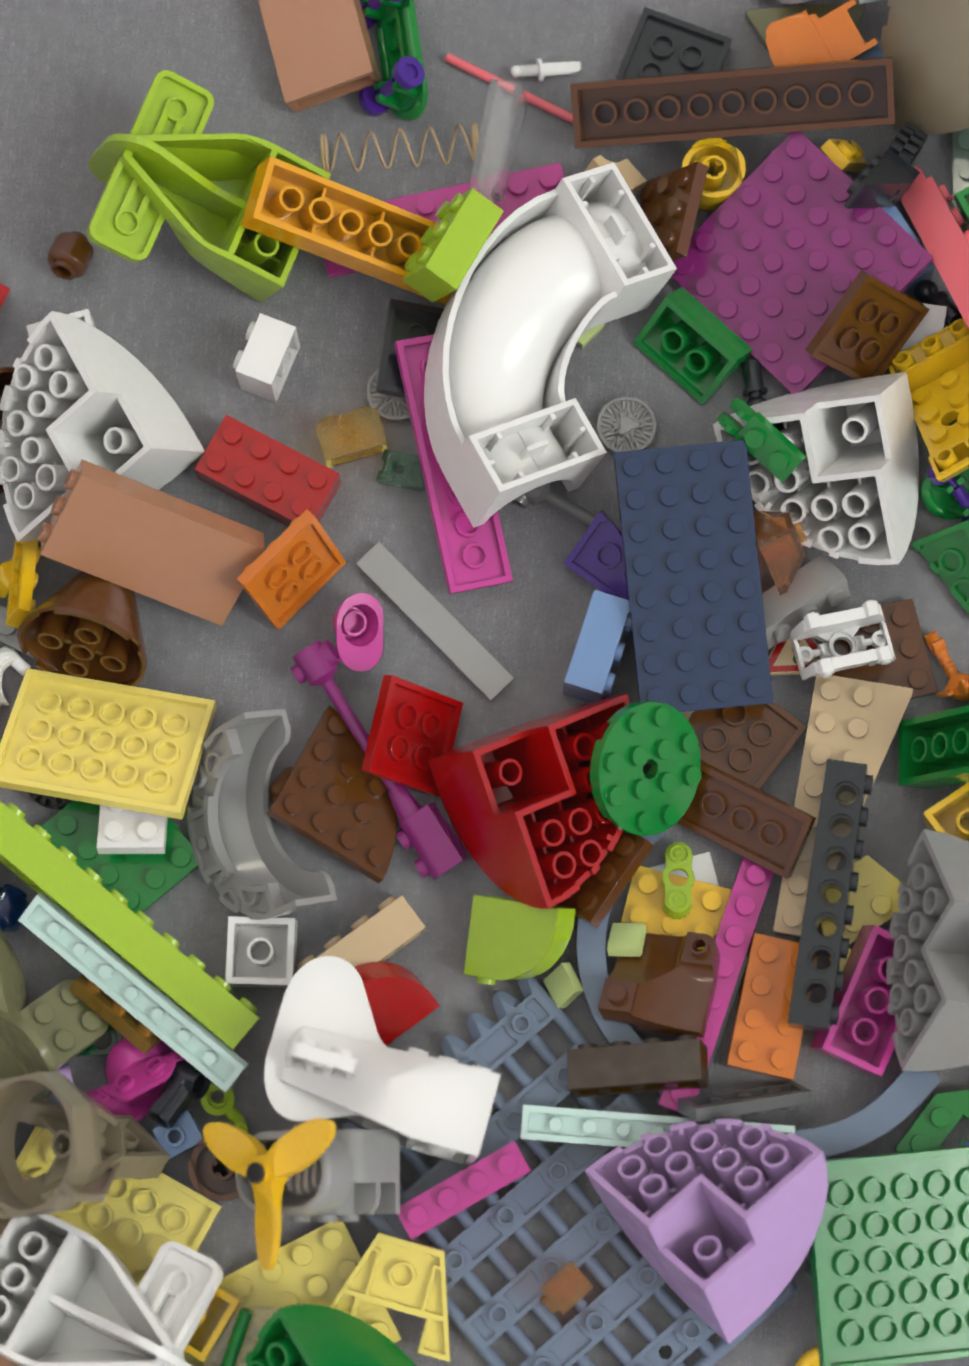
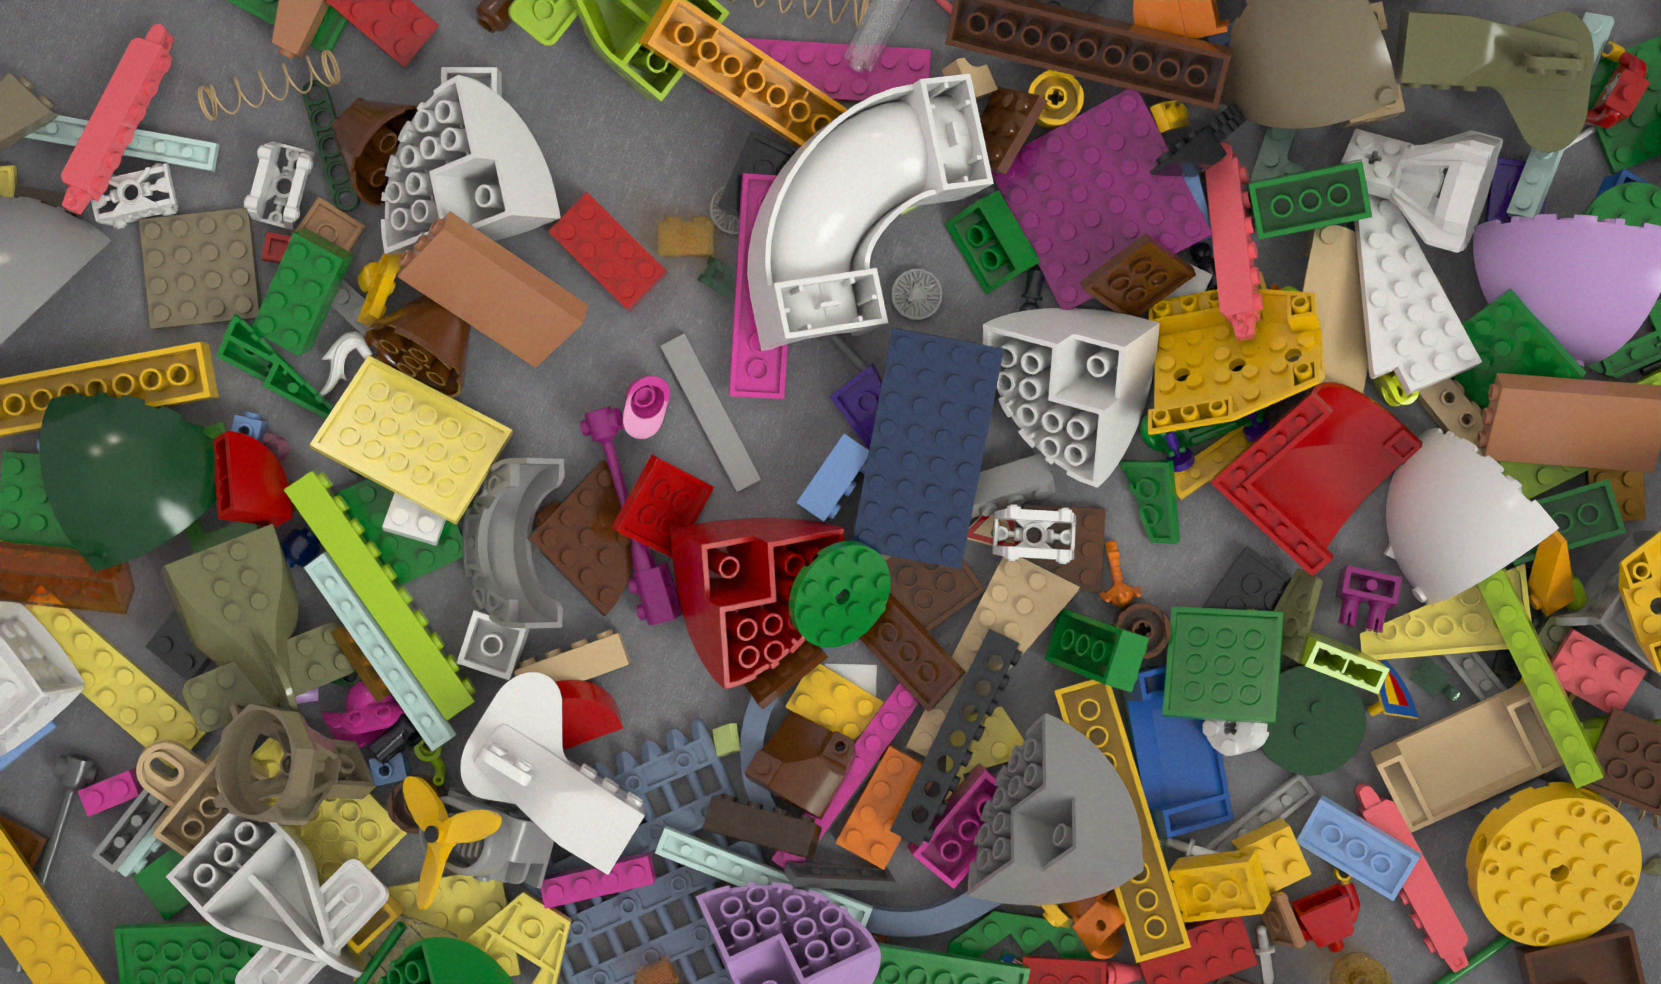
camera: 10 degrees right, 10 degrees up
(267, 357) = (634, 151): white brick -> none
(291, 569) = (603, 341): orange plate -> none
(451, 244) = (811, 109): lime brick -> none
(514, 939) = (692, 697): lime brick -> none
(626, 939) = (786, 719): yellowish green tile -> none
(677, 898) = (838, 699): lime piece -> none
(762, 440) = (1017, 352): green hinge -> none
(780, 545) = (1006, 440): clear orange slope -> none

